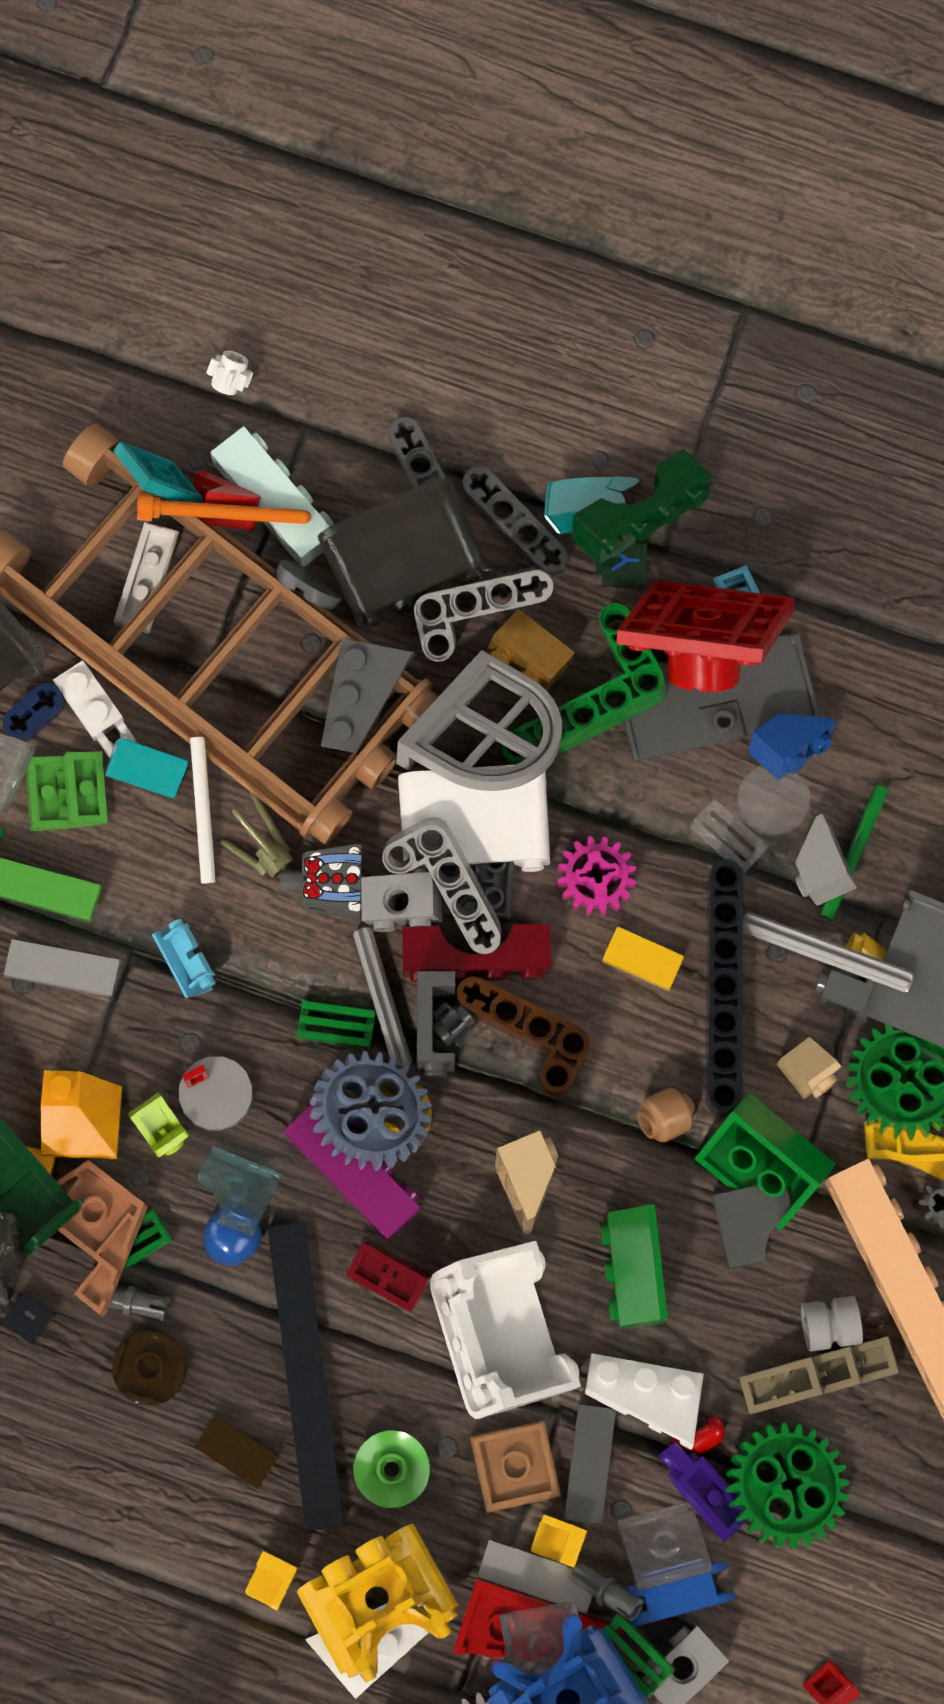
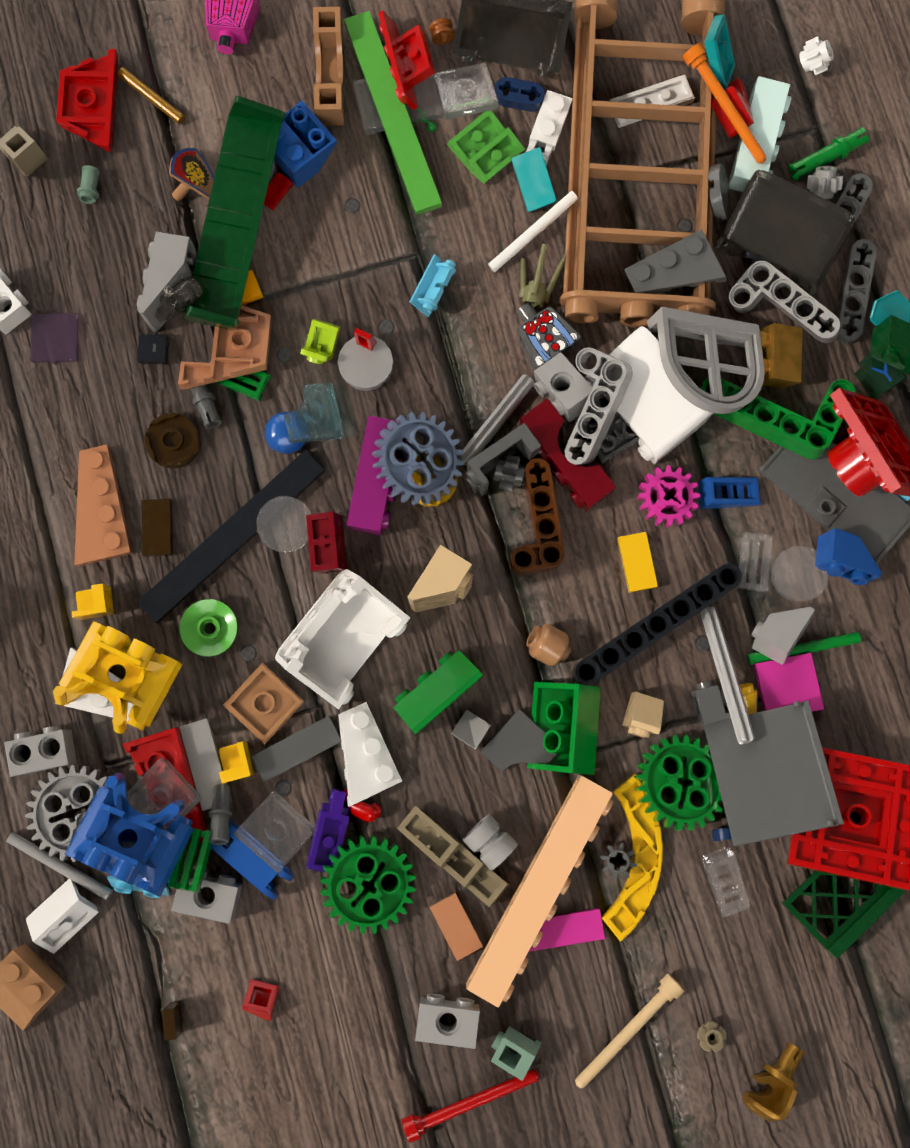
camera: 55 degrees right, 5 degrees up
(62, 968) = (376, 220): light grey tile -> none
(79, 1115) = (293, 290): light orange slope -> none
(176, 1506) = (100, 512): none -> nougat wing
(305, 1020) = (448, 383): green tile -> none
(334, 1307) = (283, 524): none -> clear tile
(345, 439) = (838, 148): none -> green pin
(375, 467) = (825, 182): none -> light grey gear
(624, 828) = (711, 492): none -> blue slope
(698, 1261) = (470, 729): none -> light grey slope
(879, 894) = (788, 683): none -> dark pink tile
(895, 1423) = (456, 926): none -> nougat tile

